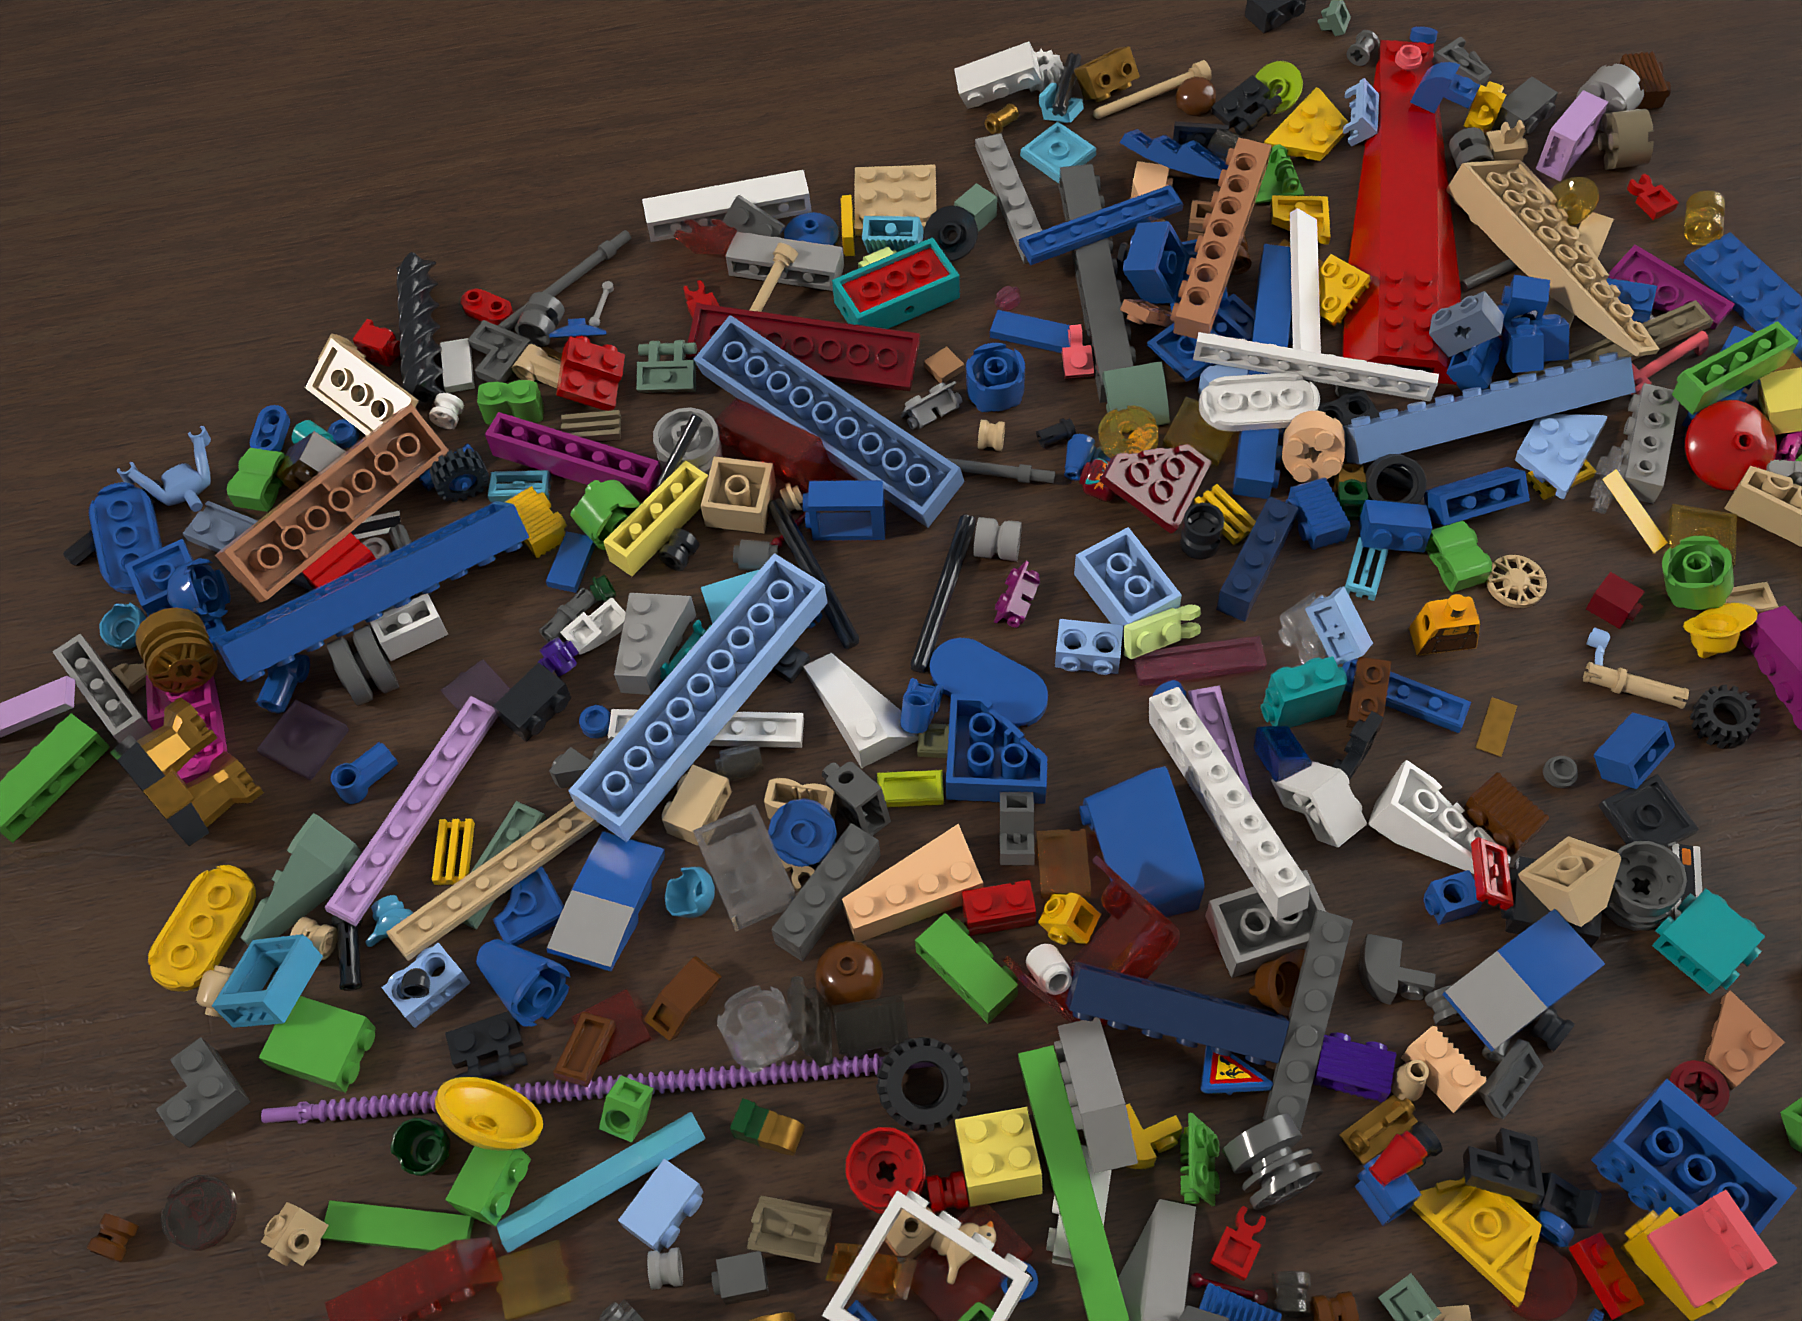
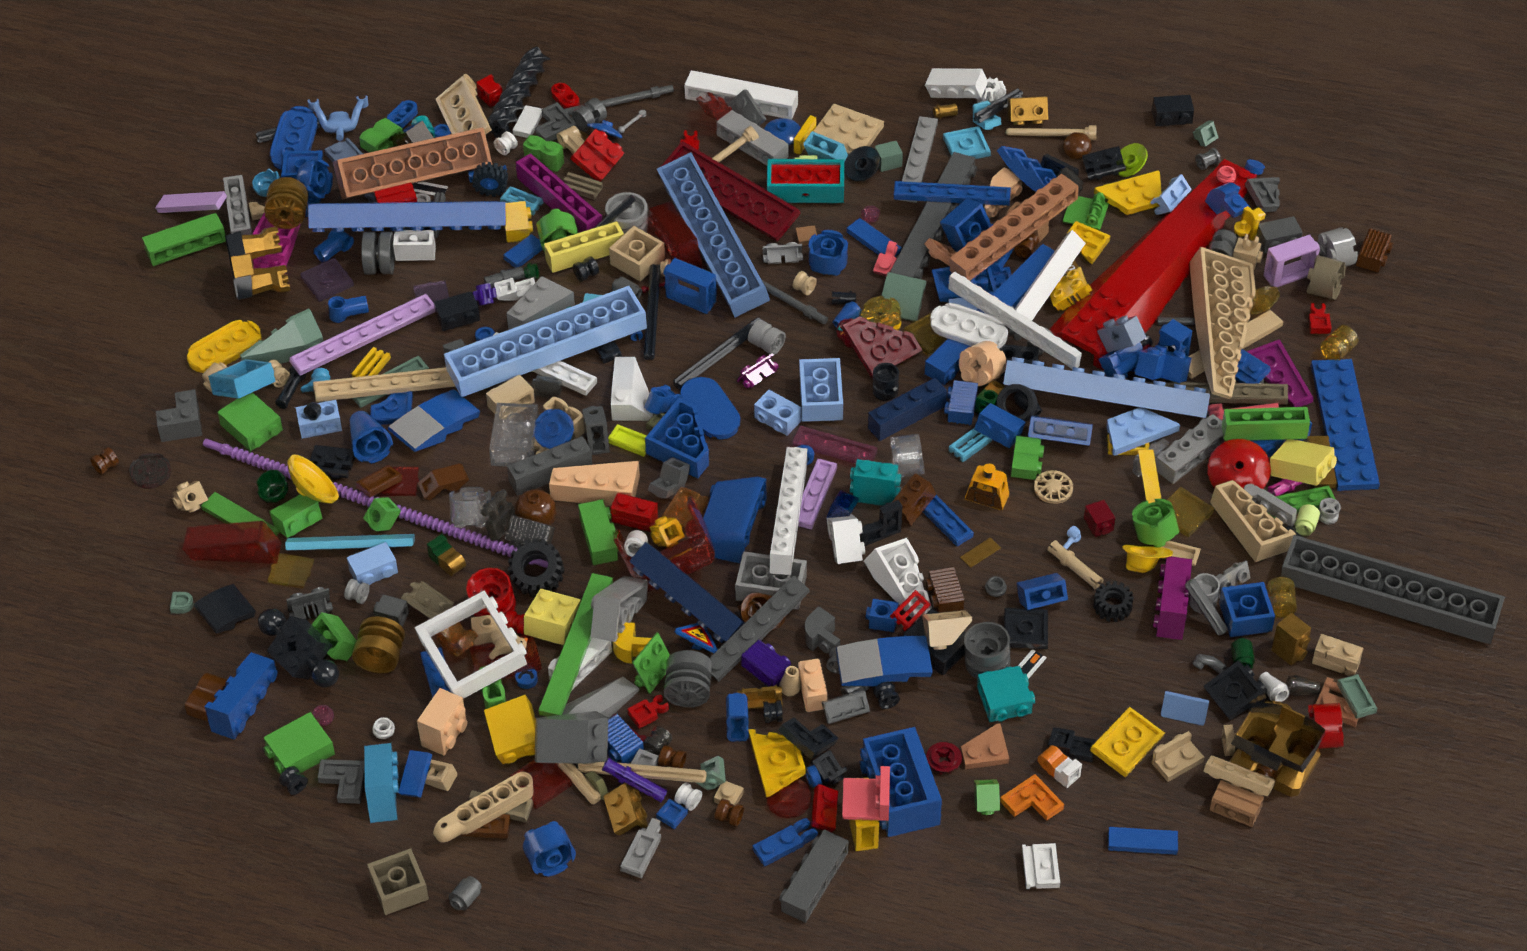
camera: 25 degrees right, 10 degrees down
(666, 375) = (641, 175): sand green plate -> none
(690, 893) = (478, 437): dark azure hair -> none
(1160, 630) = (821, 419): yellowish green hinge -> none
(1231, 511) = (908, 369): yellow tile -> none
(1339, 626) = (914, 452): light blue hinge -> none
(1399, 1157) = (743, 692): red cone -> none

